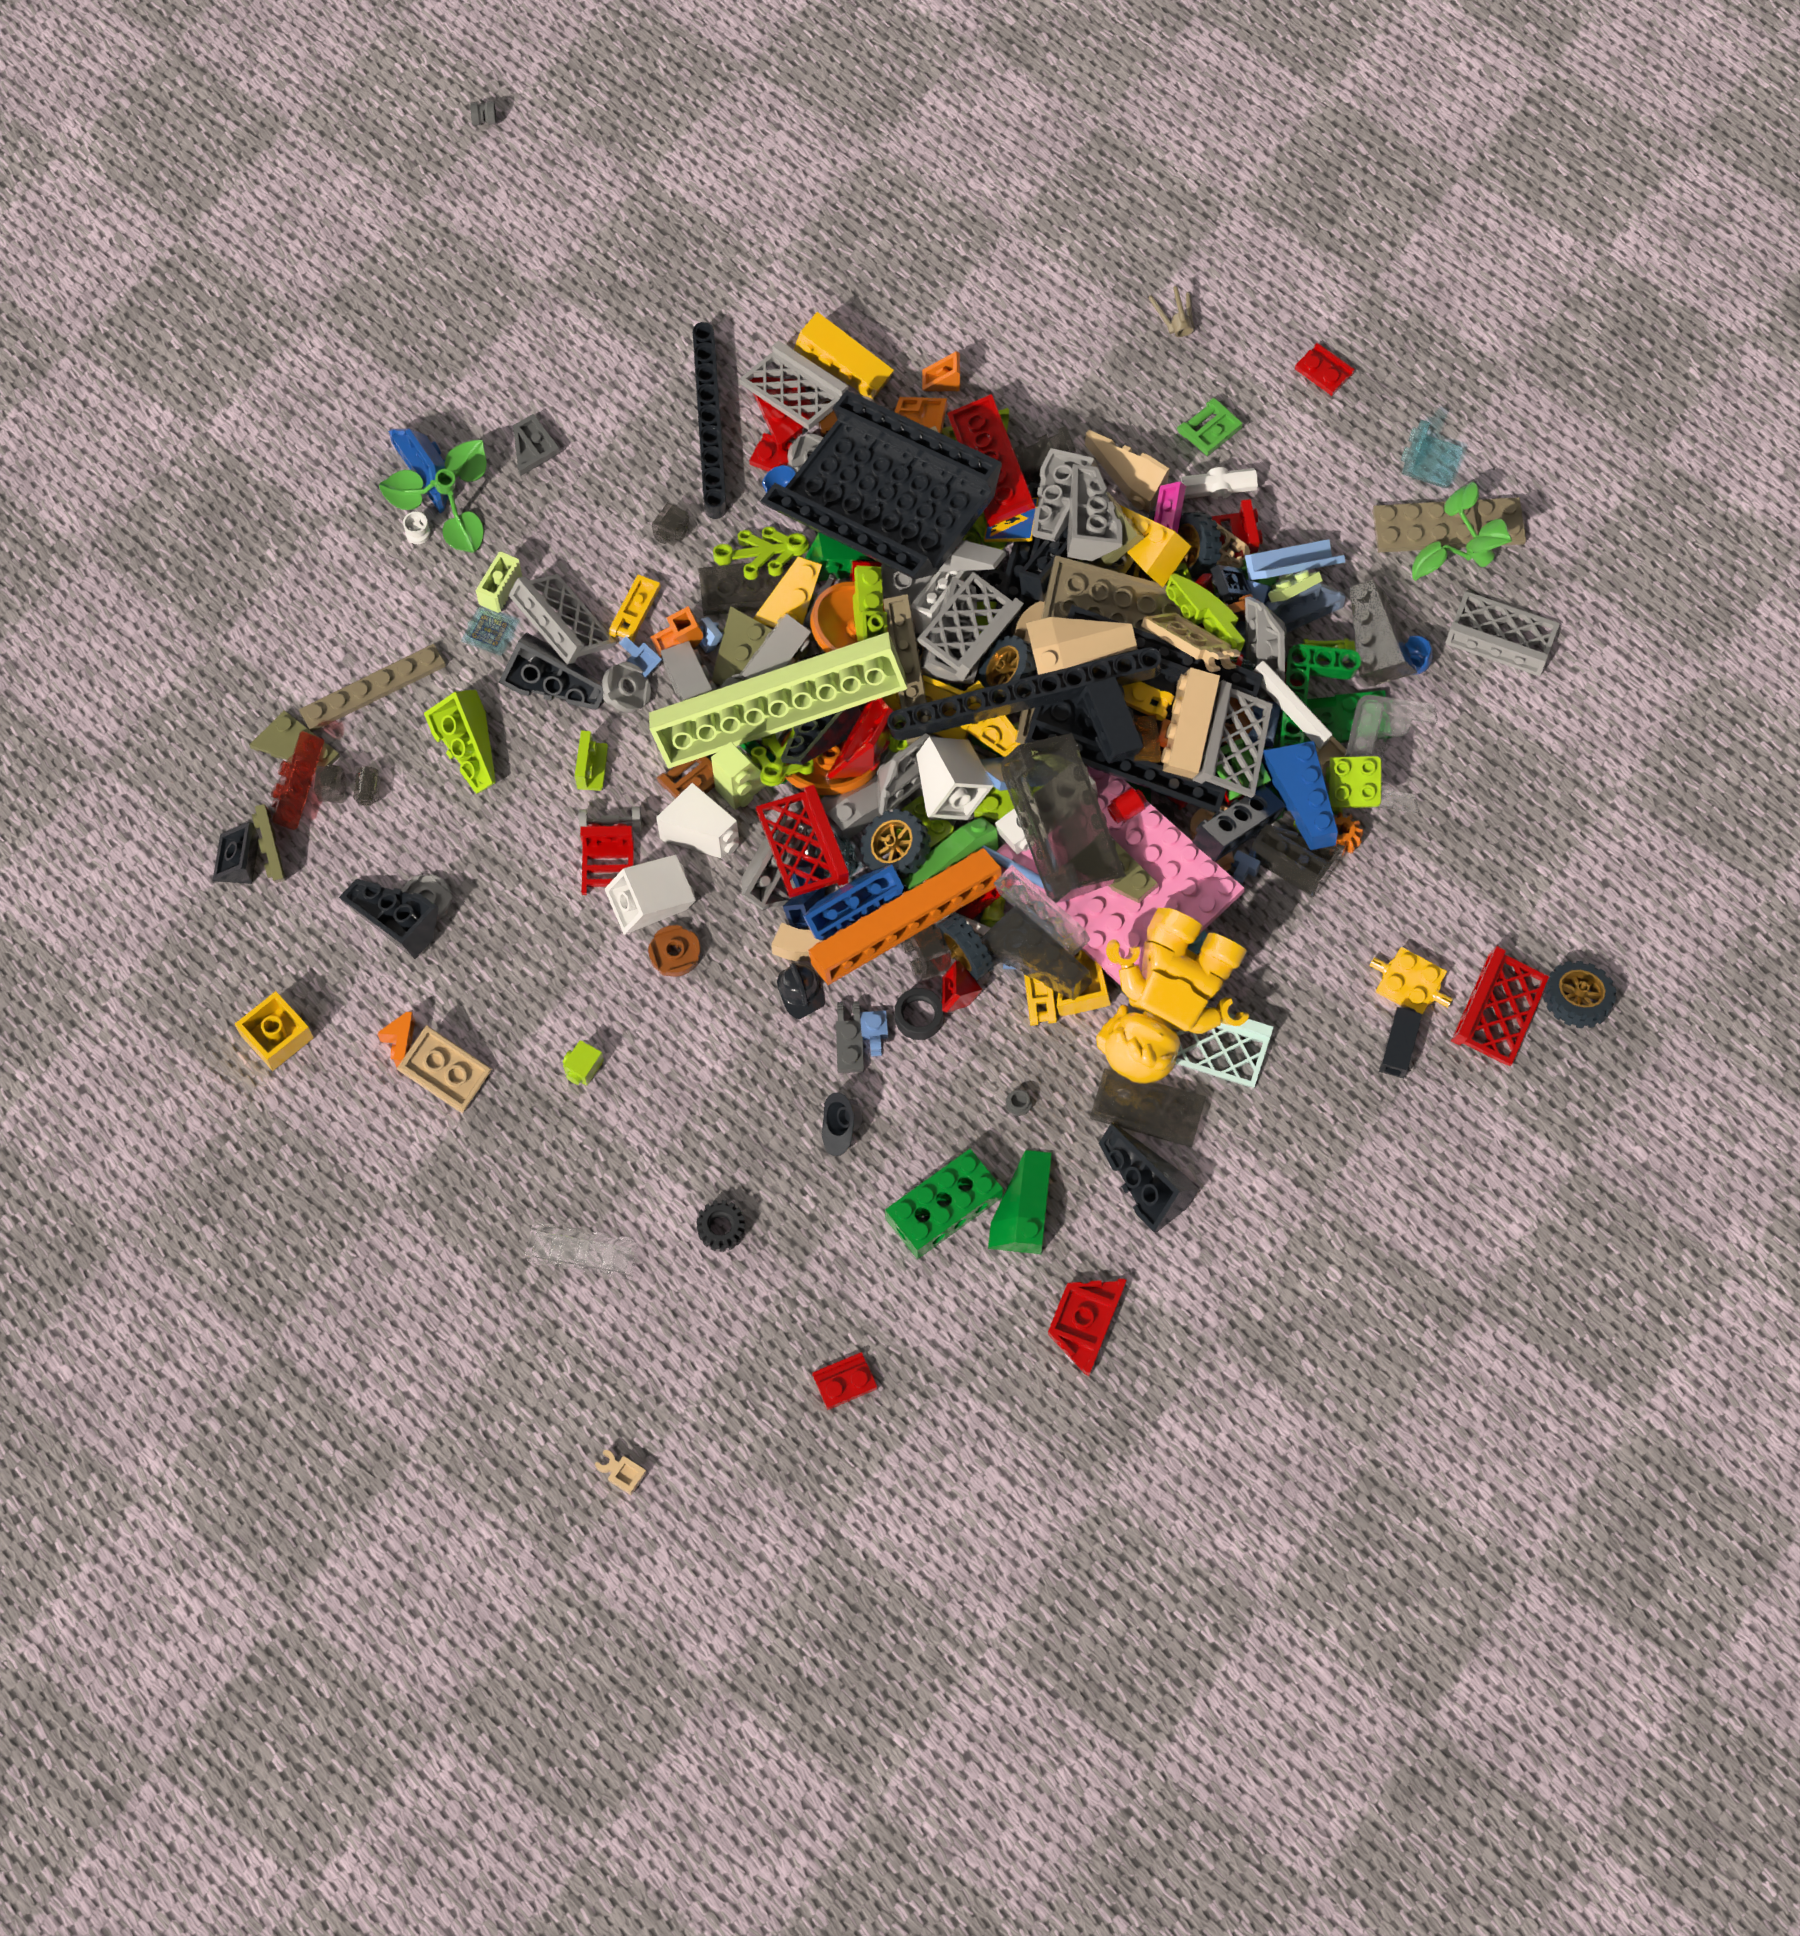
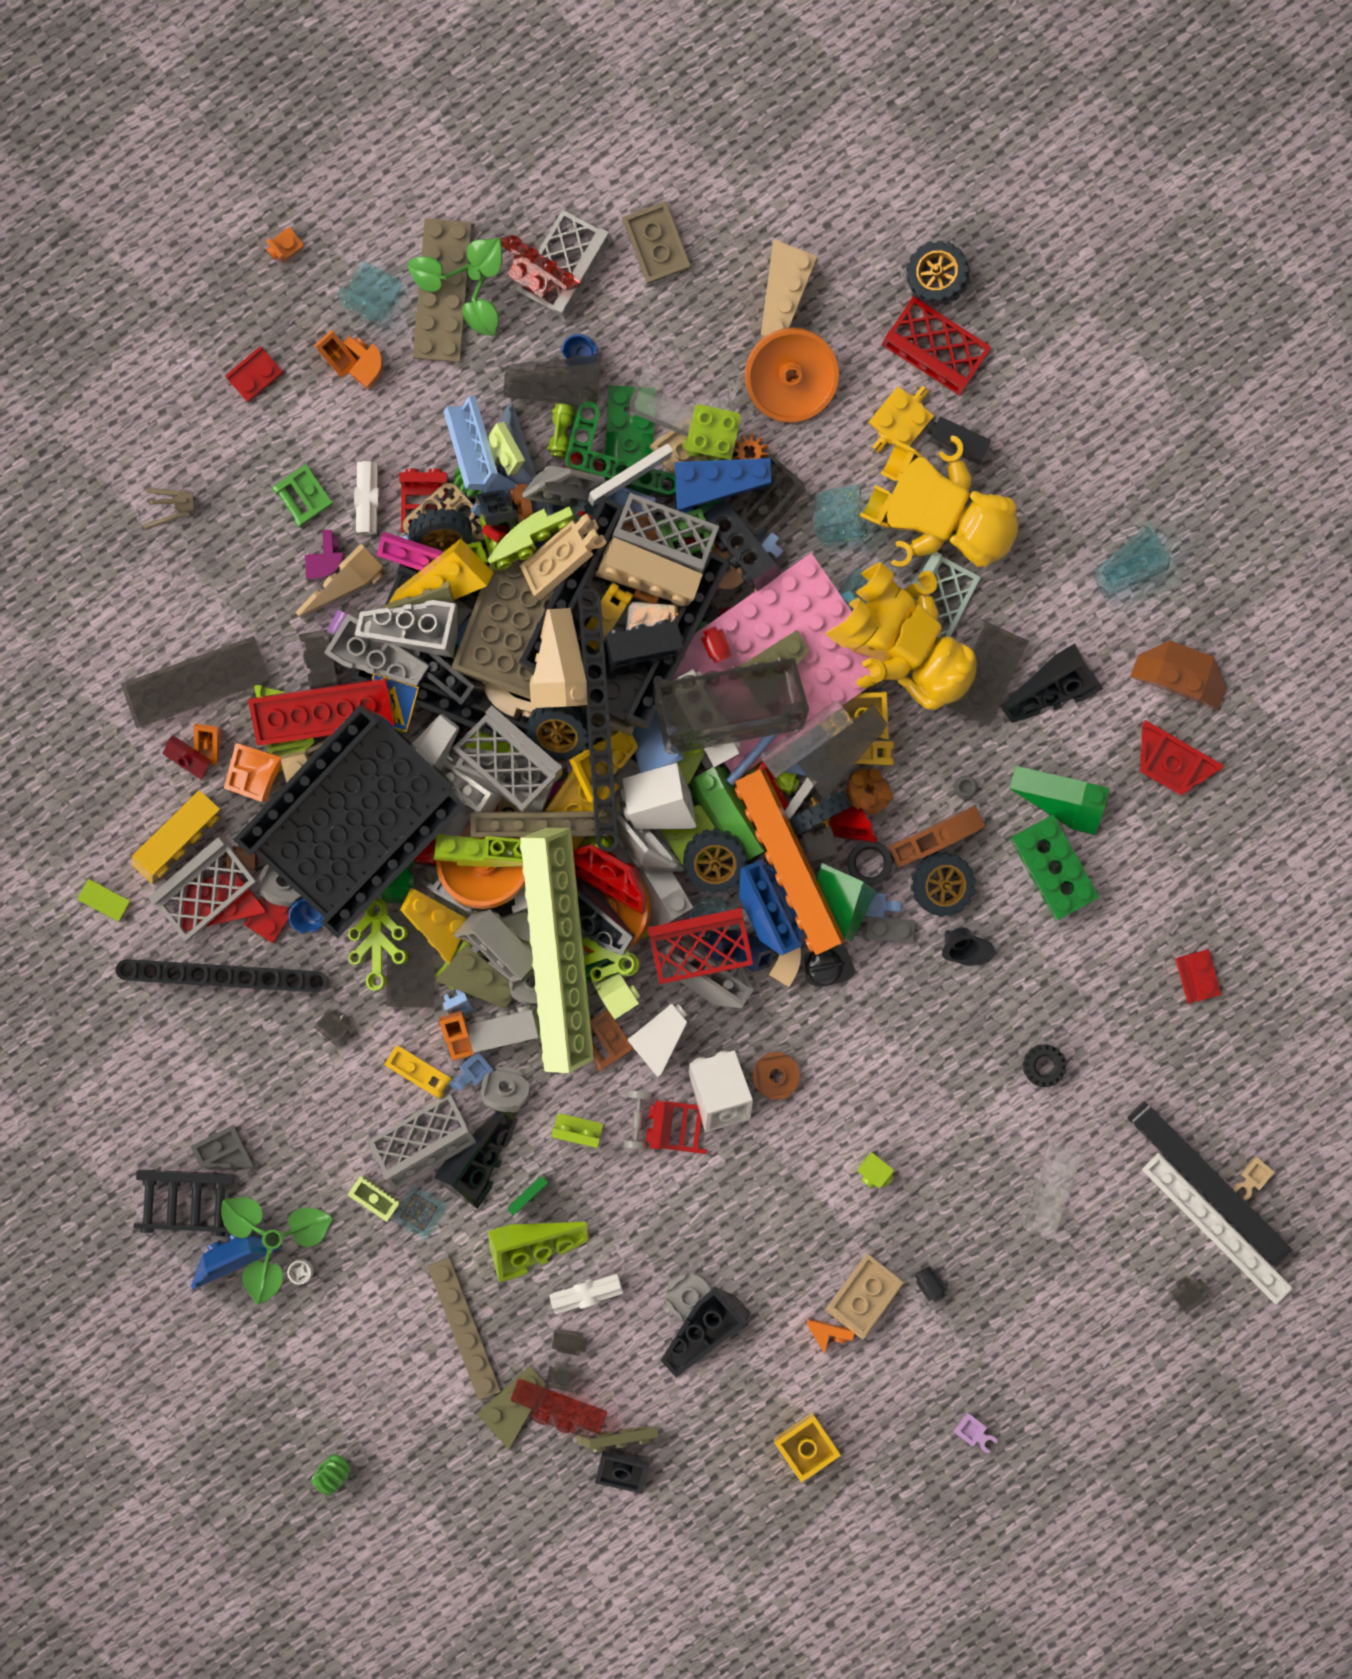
camera: 85 degrees left, 20 degrees up
(210, 579) = (331, 1474): none -> bright green gear
(304, 1204) = (973, 1431): none -> lavender plate
(420, 796) = (586, 1294): none -> white piece
(464, 1138) = (931, 1284): none -> black brick
(481, 1416) = (1189, 1293): none -> clear smoke brick
(497, 404) = (173, 1180): none -> black fence
(518, 720) = (528, 1194): none -> green tile
(557, 1442) = (1217, 1229): none -> white tile
(605, 1425) = (1210, 1184): none -> black beam
(770, 310) = (104, 900): none -> lime tile
(873, 986) = (846, 898): none -> green slope
(888, 1071) = (922, 877): none -> black wheel
(925, 359) = (186, 757): none -> dark red plate
(960, 1077) = (937, 836): none -> dark orange slope
(1002, 358) = (195, 682): none -> clear smoke plate
(1009, 1002) = (876, 784): none -> dark orange plate
(1142, 443) = (326, 564): none -> magenta brick
(1187, 1317) = (1181, 673): none -> dark orange wedge
(1288, 923) = (838, 515): none -> clear light blue bracket
(1301, 1241) = (1133, 563): none -> clear light blue wedge
(1325, 1004) = (937, 507): none -> yellow piece
(1357, 466) = (370, 362): none -> orange brick
(1362, 433) = (335, 353): none -> orange slope
(1434, 858) = (791, 374): none -> orange dish
(1460, 377) = (284, 245): none -> orange bracket
(1490, 600) = (534, 270): none -> clear red bracket
(1522, 843) = (786, 284): none -> tan wedge
(1546, 715) = (656, 242): none -> dark tan plate

